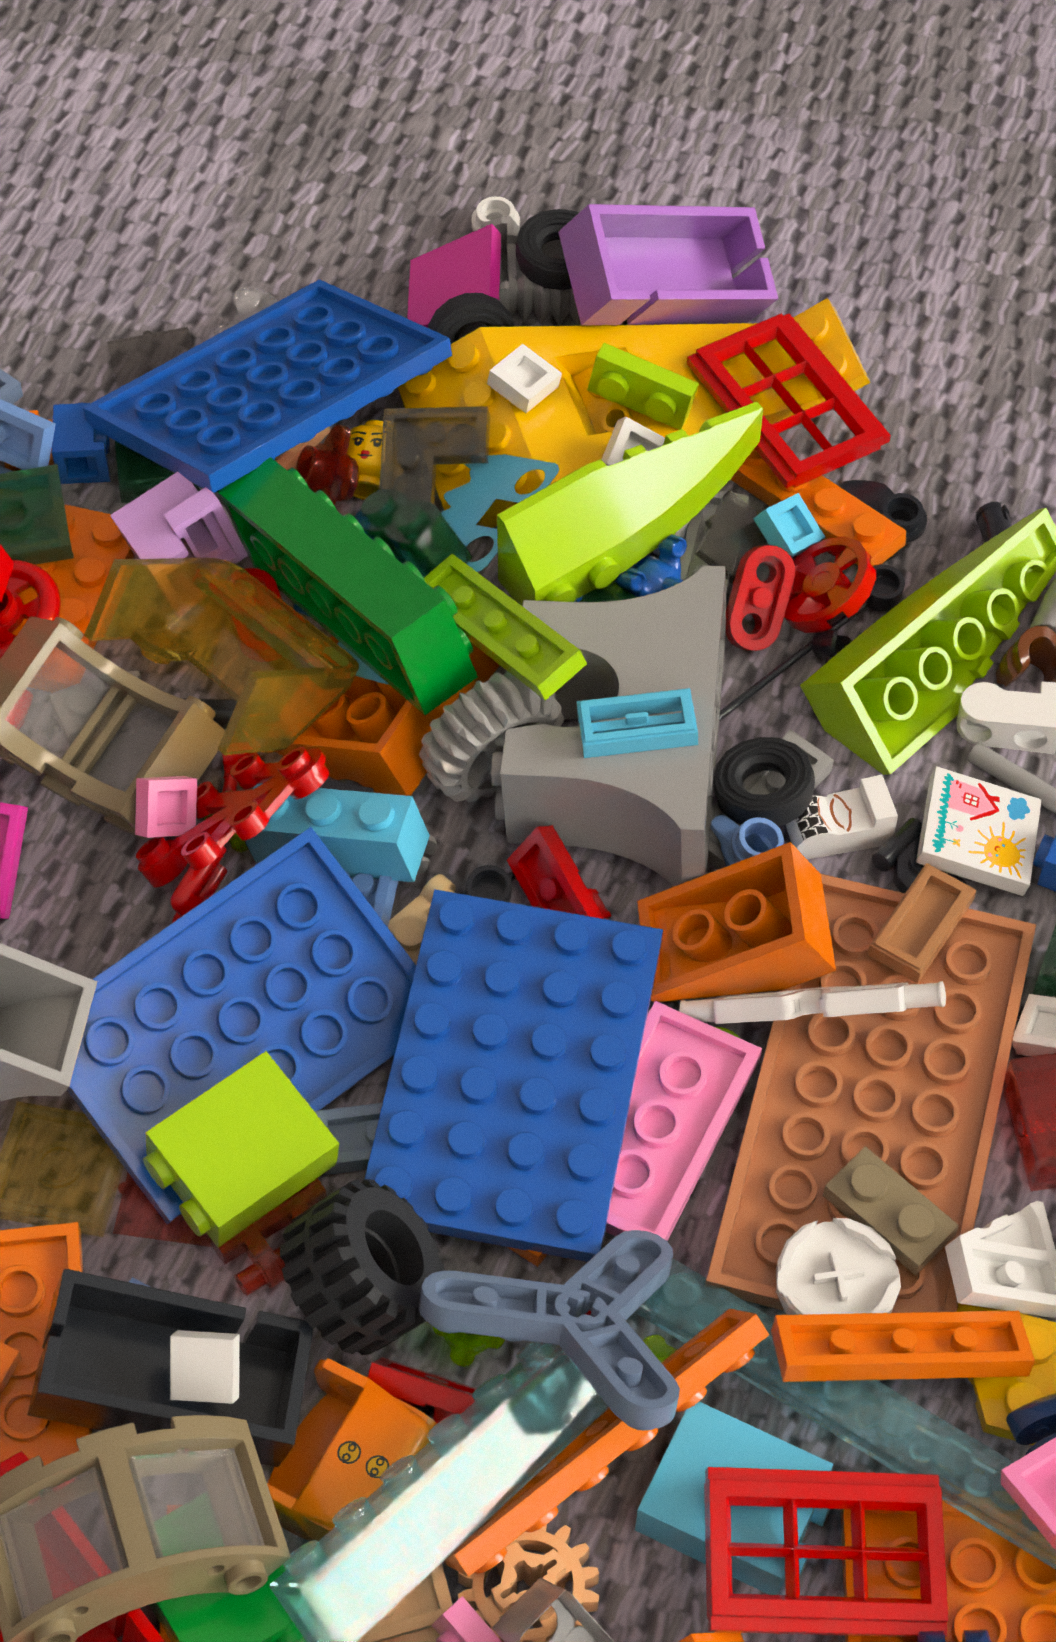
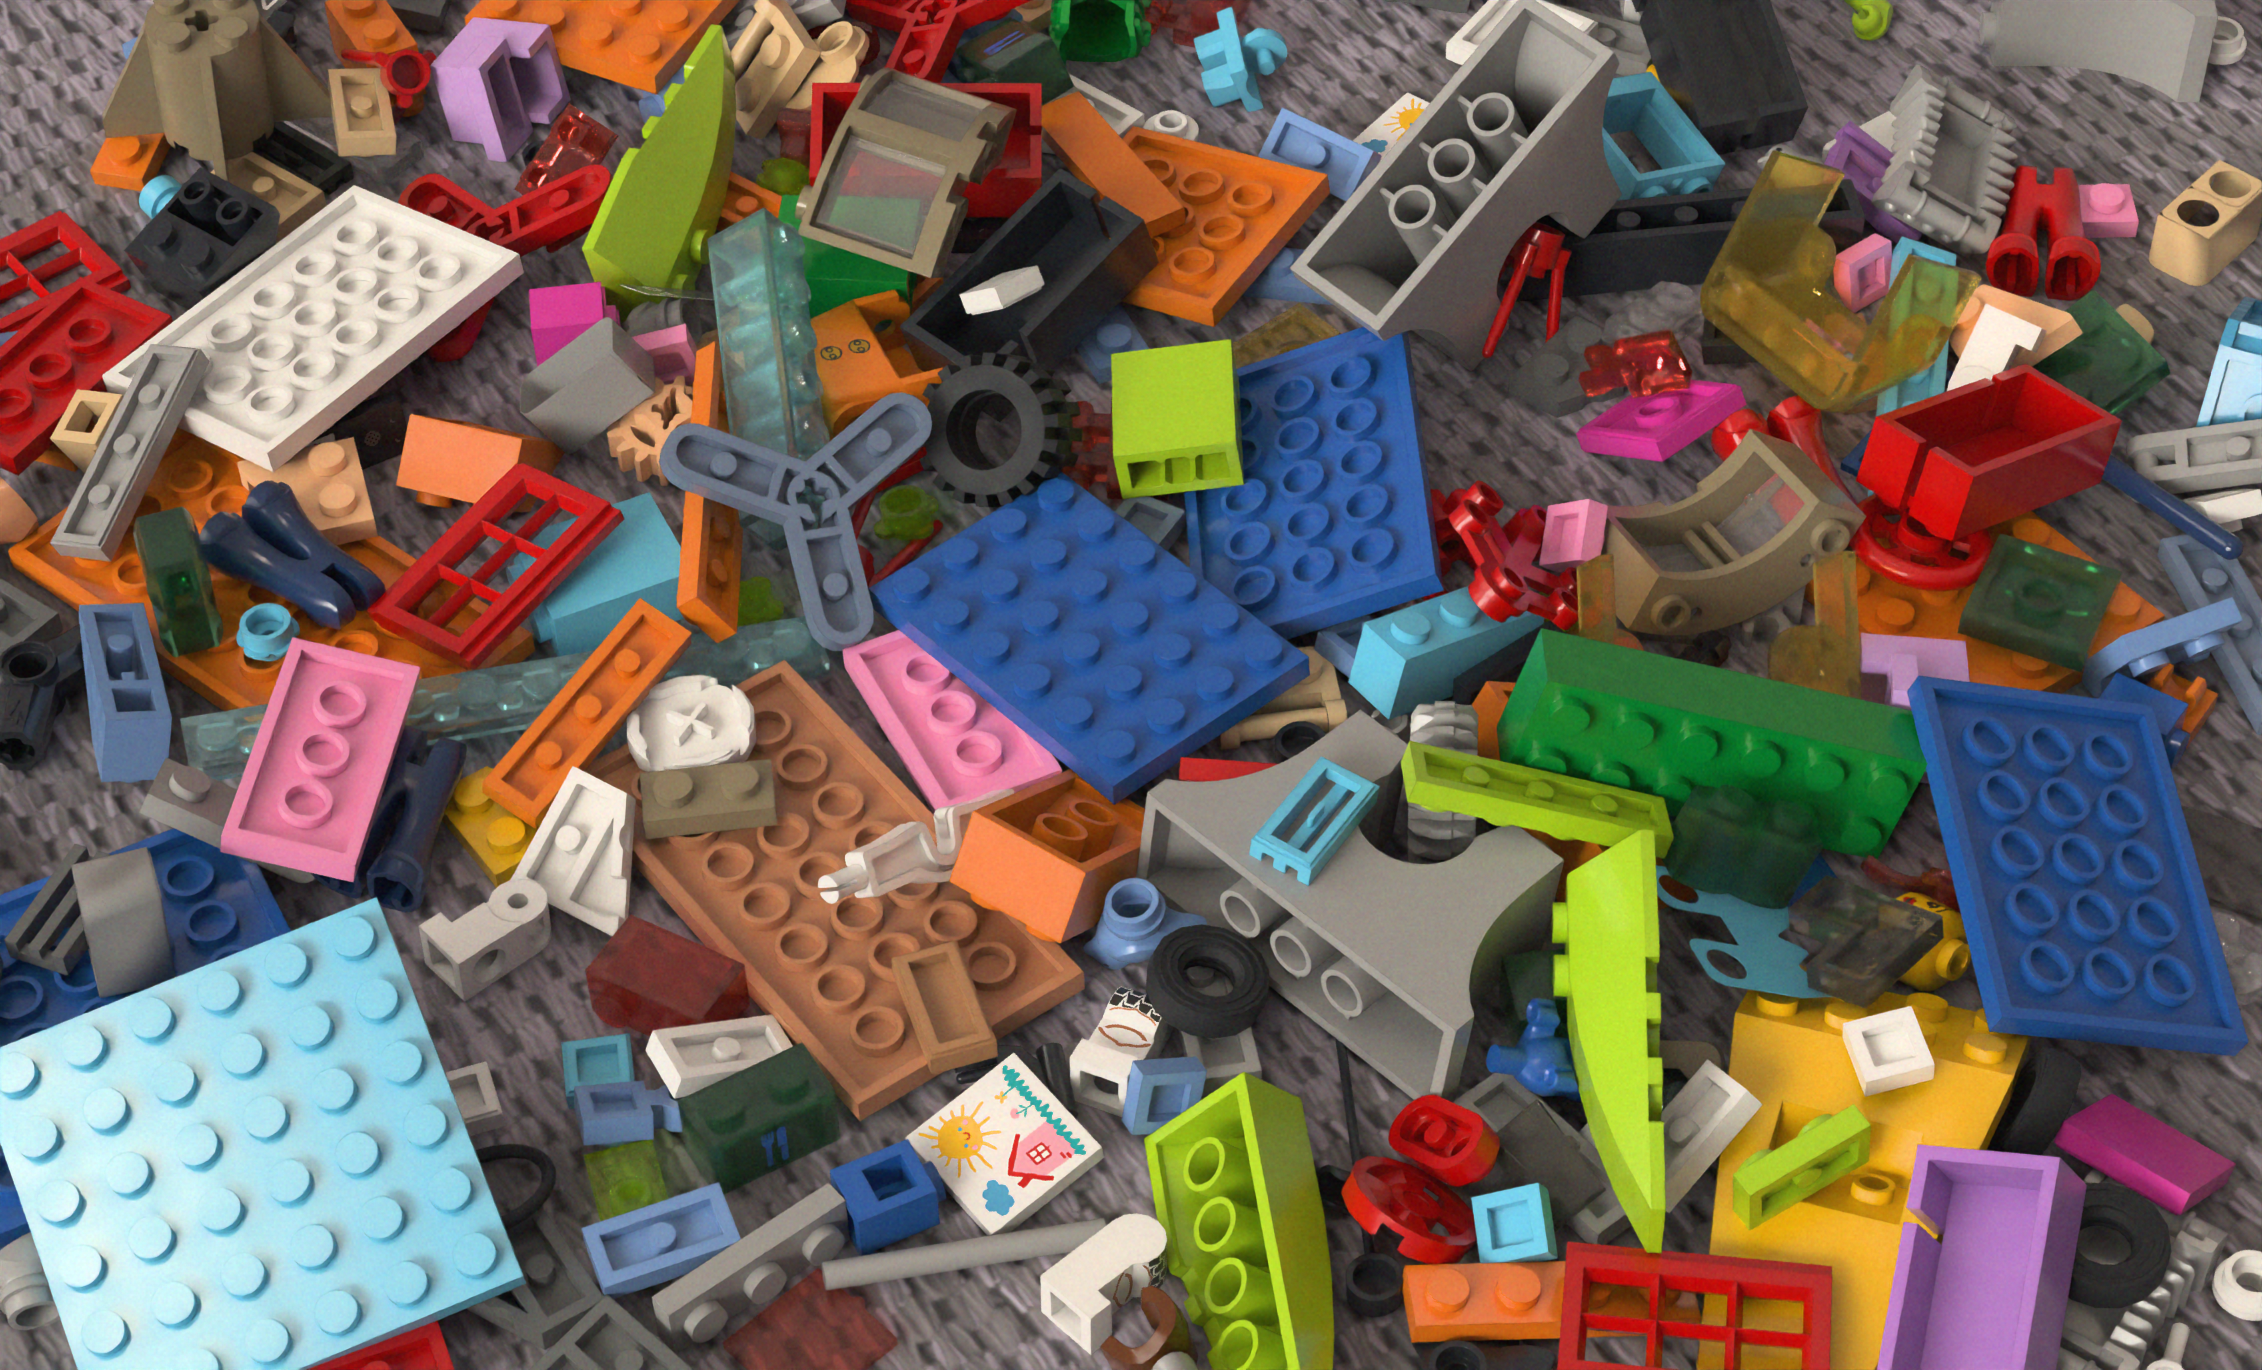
camera: 130 degrees right, 10 degrees down
(861, 761) = (1161, 1091): none -> medium blue plate

